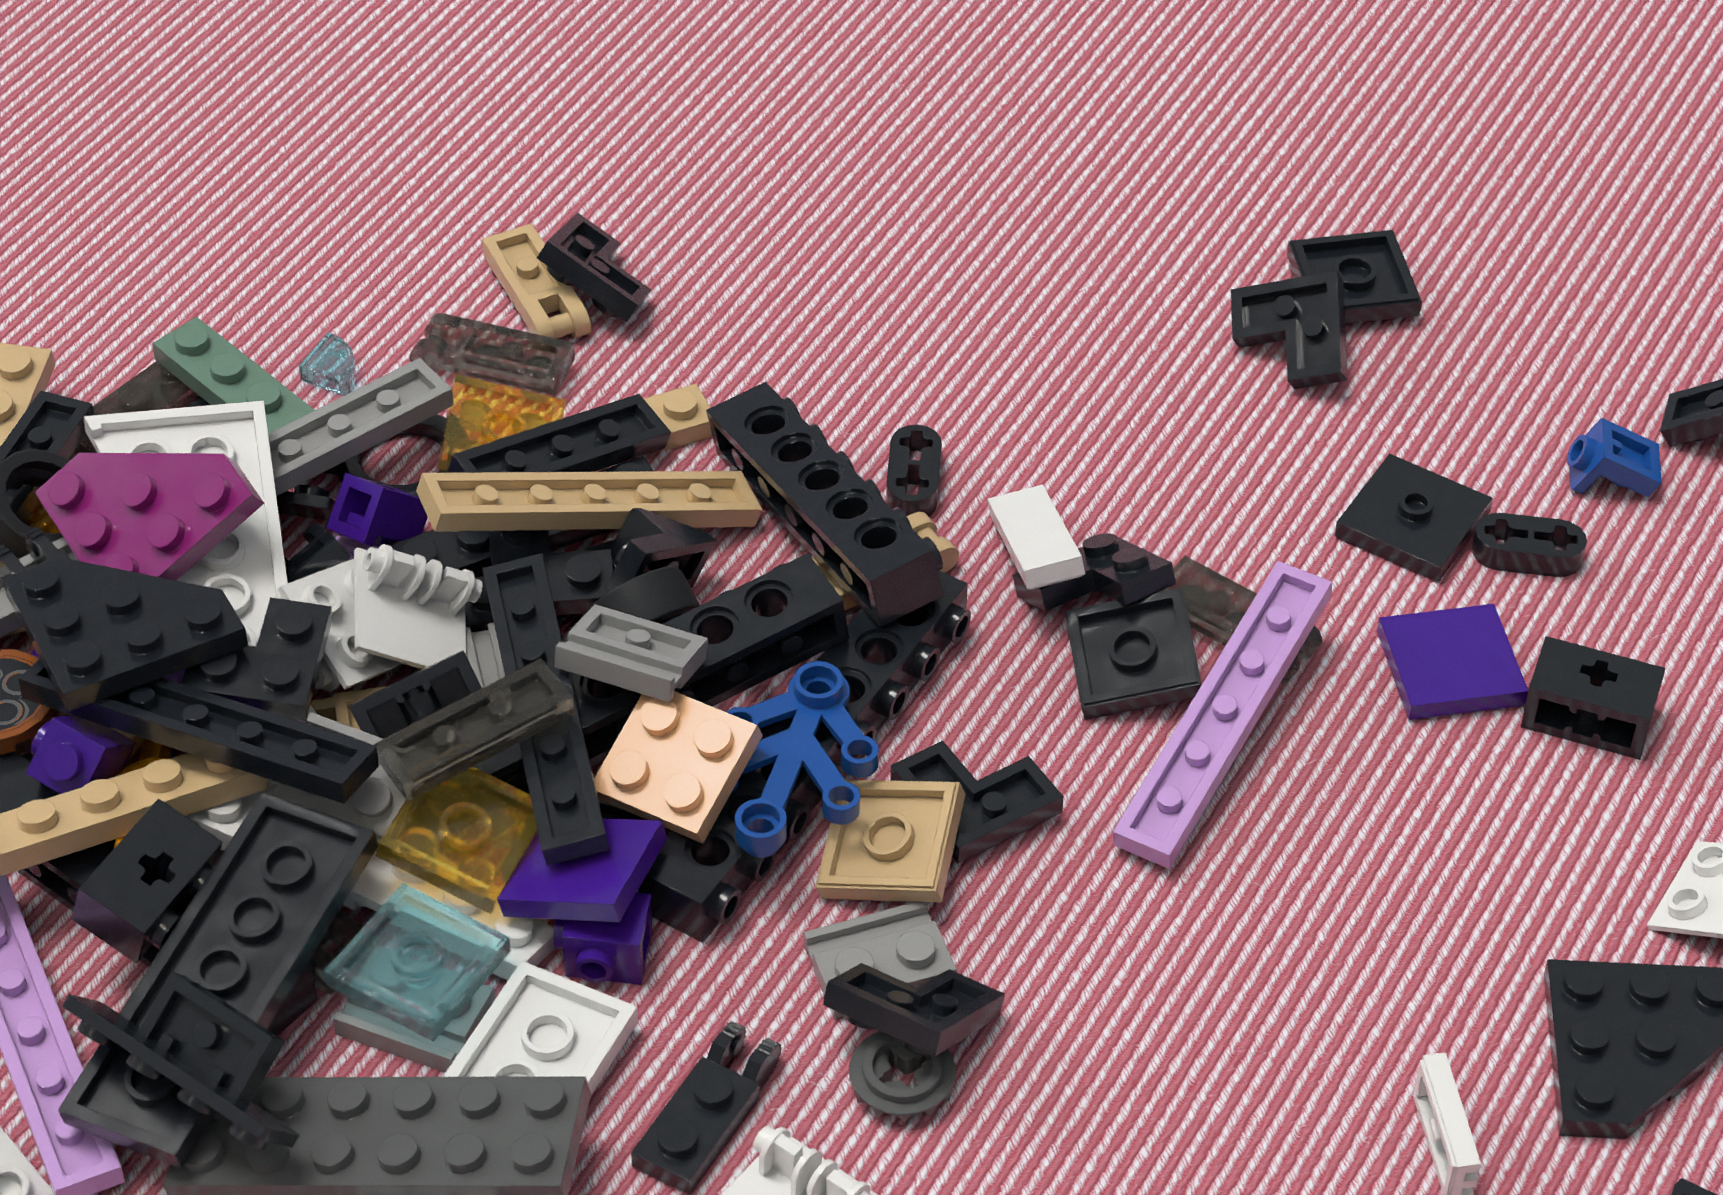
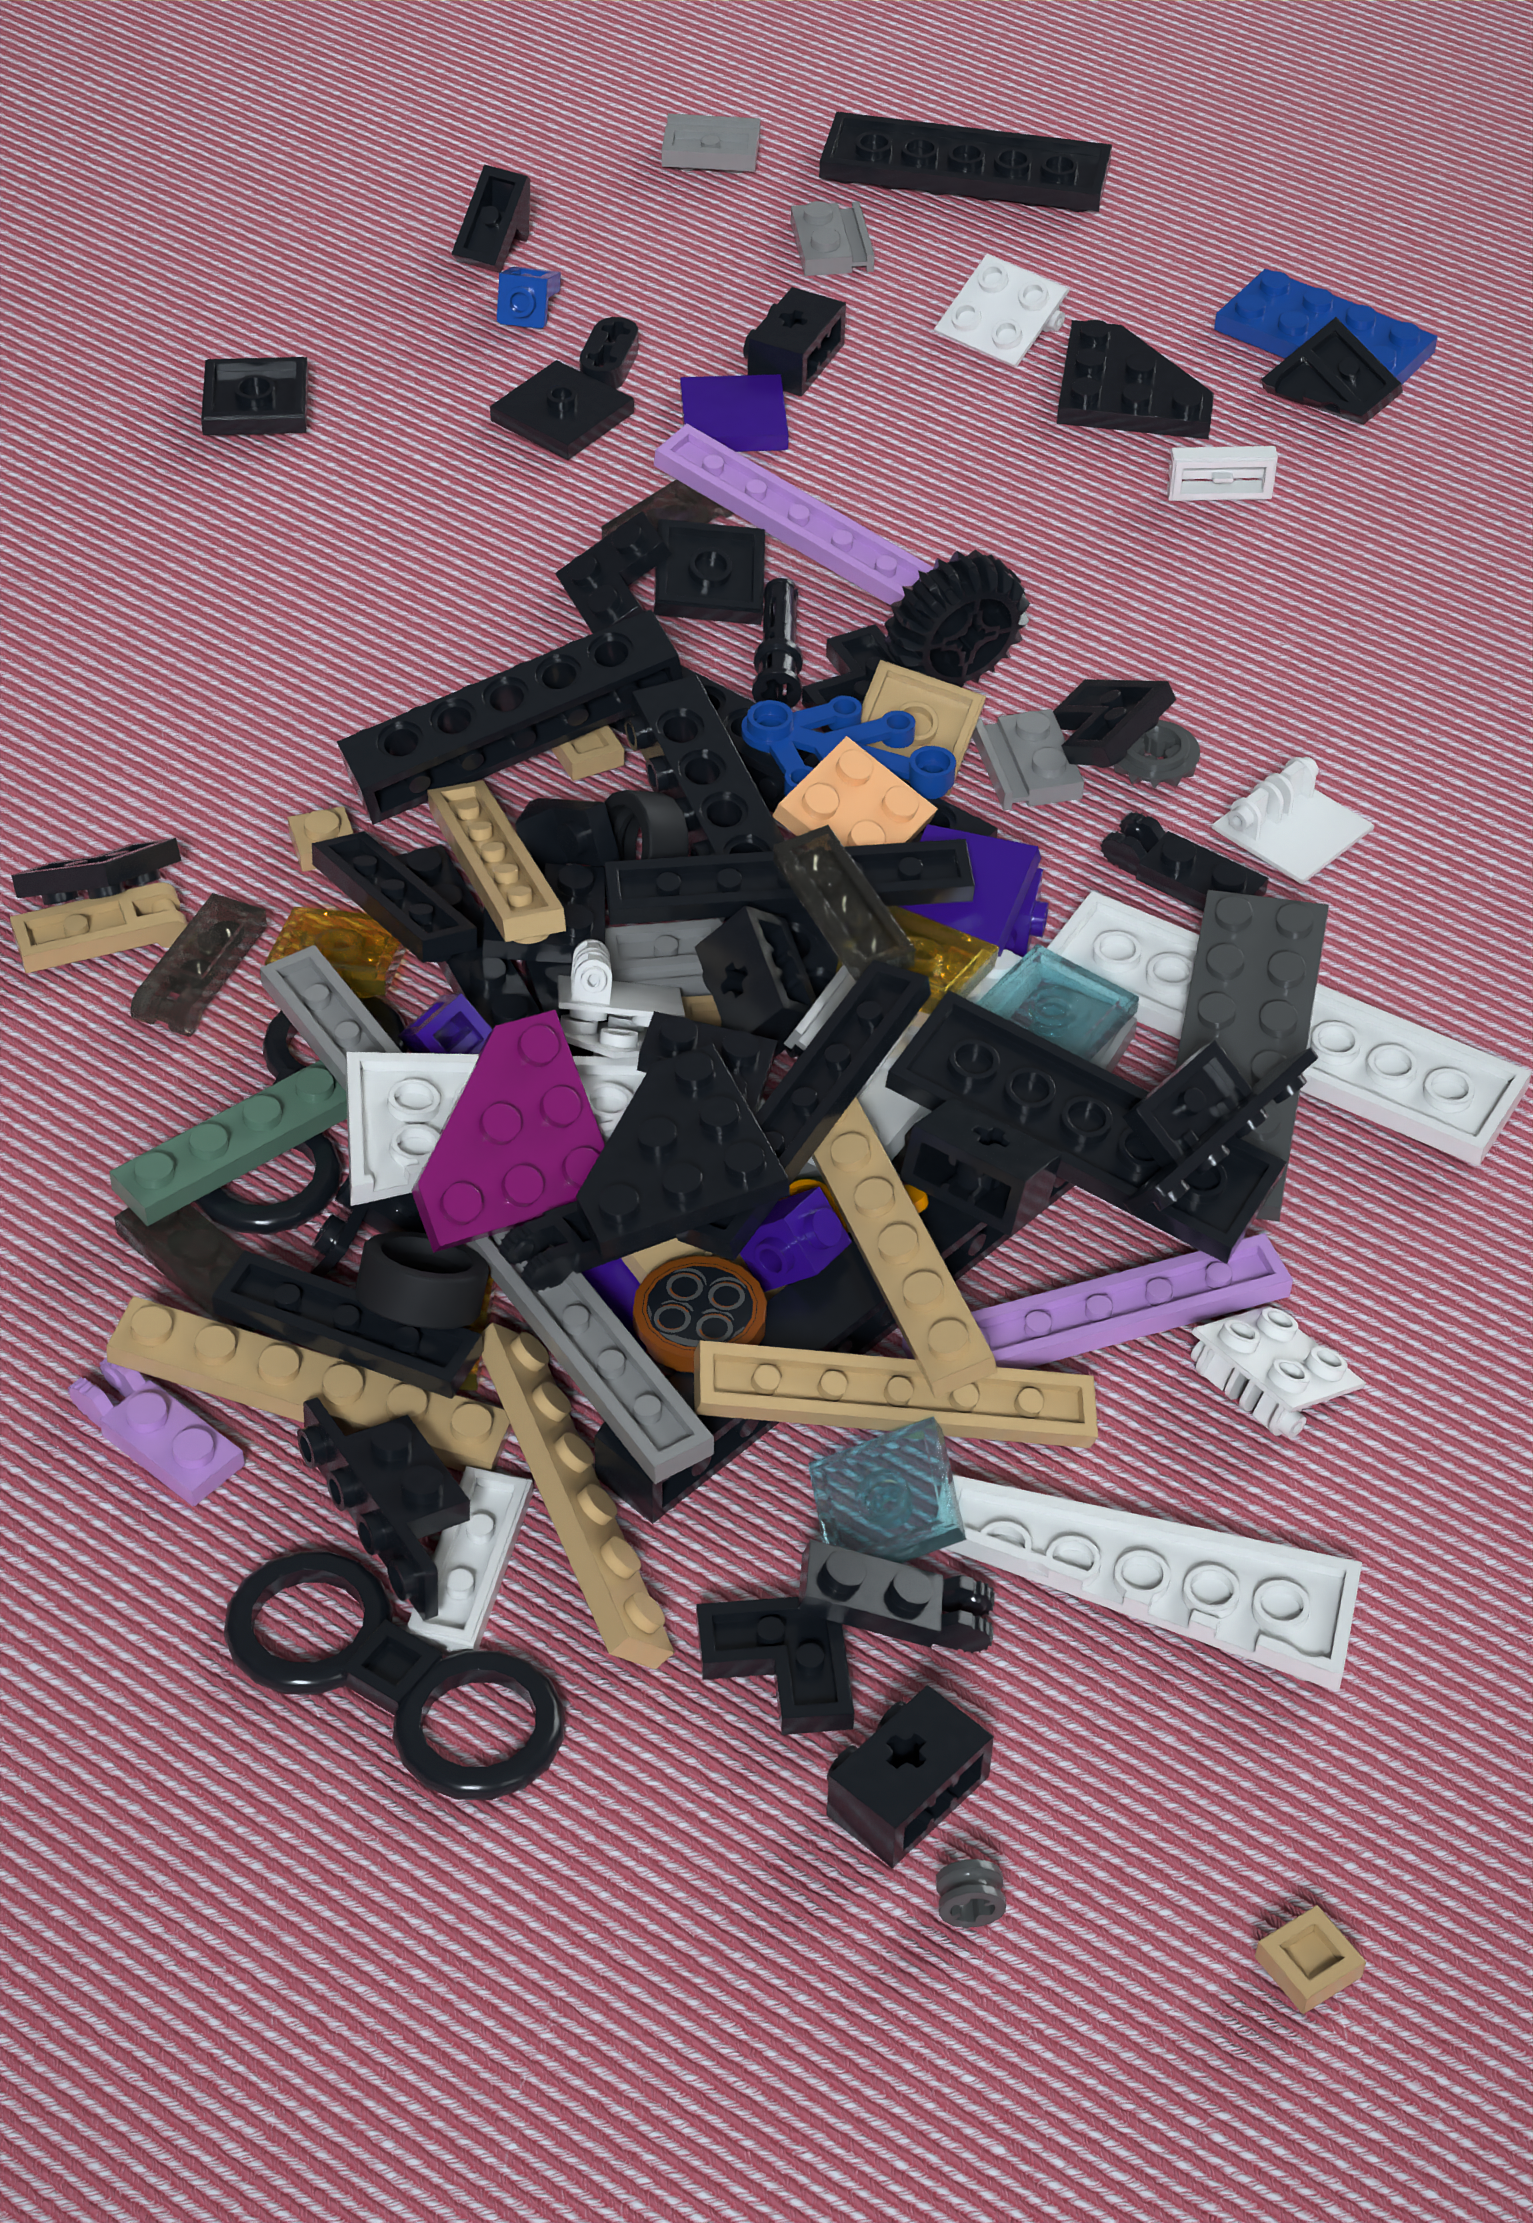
camera: 85 degrees left, 0 degrees up
(330, 365) = (174, 1095): clear light blue tile -> none
(631, 652) = (751, 804): light grey plate -> none
(922, 473) = (425, 680): black beam -> none
(1000, 724) = (778, 657): none -> black pin
(1036, 537) = (569, 602): white tile -> none
(1041, 847) = (958, 618): none -> black gear
(1306, 315) = (322, 413): black plate -> none

